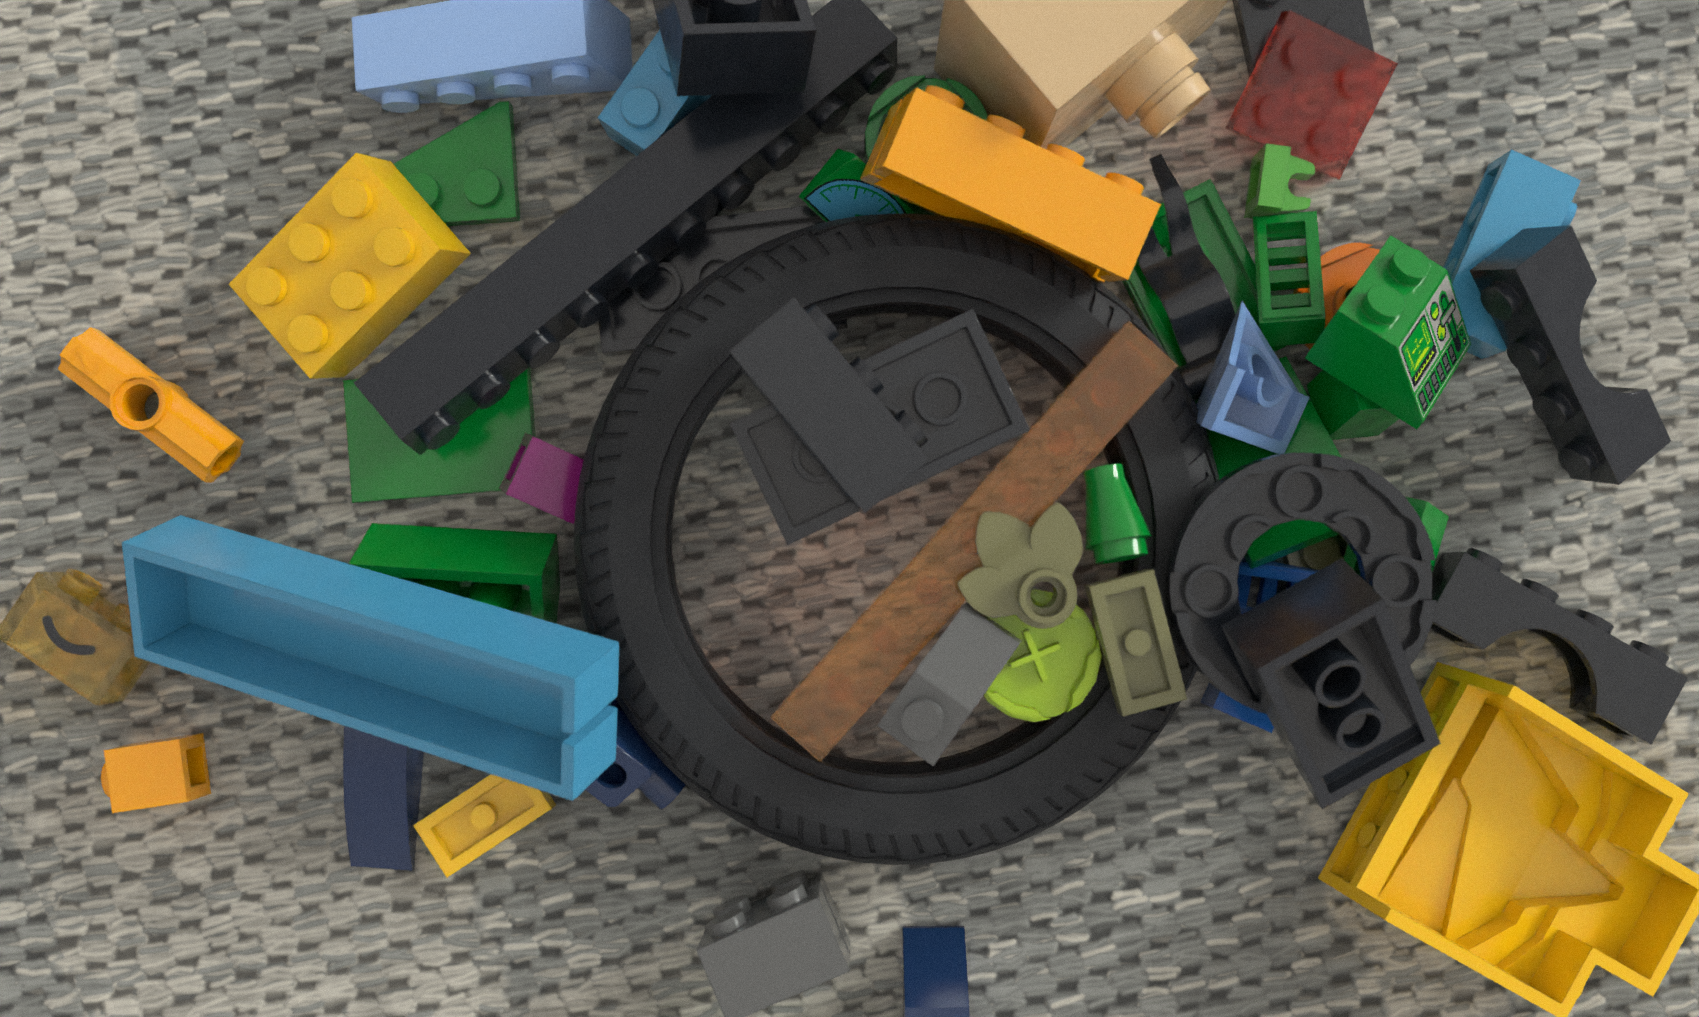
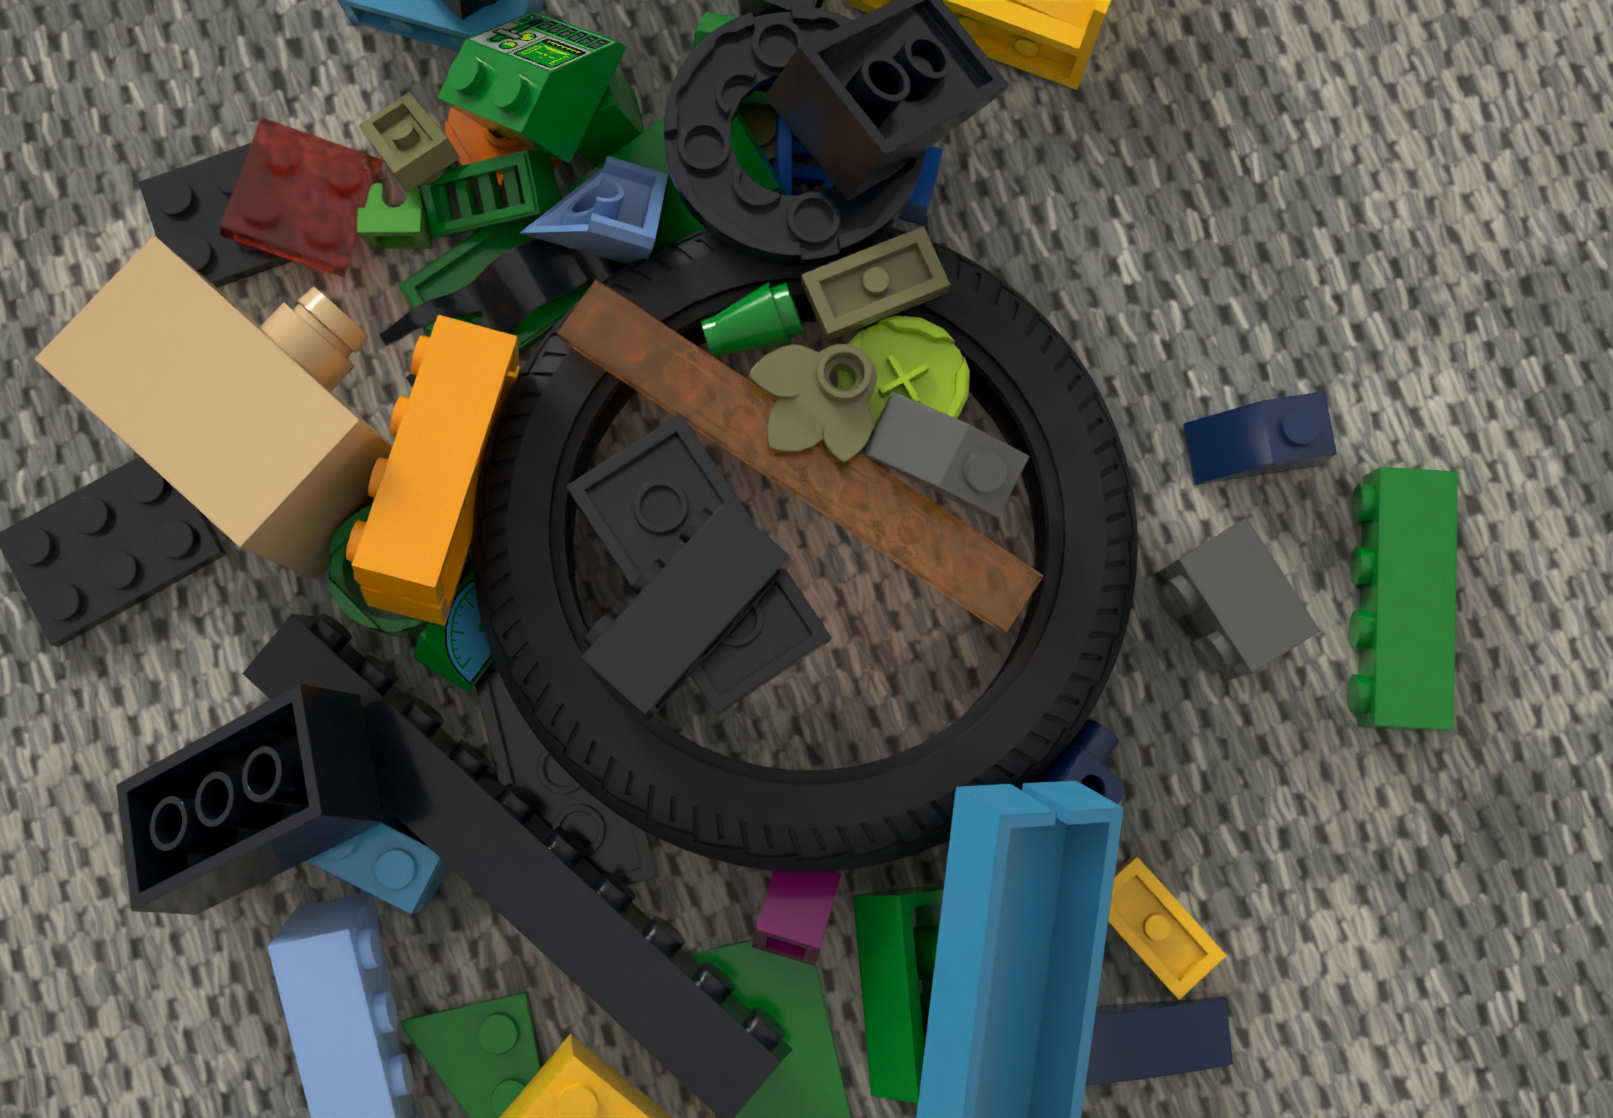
camera: 105 degrees left, 5 degrees down
(1351, 205) = (409, 142): none -> olive plate

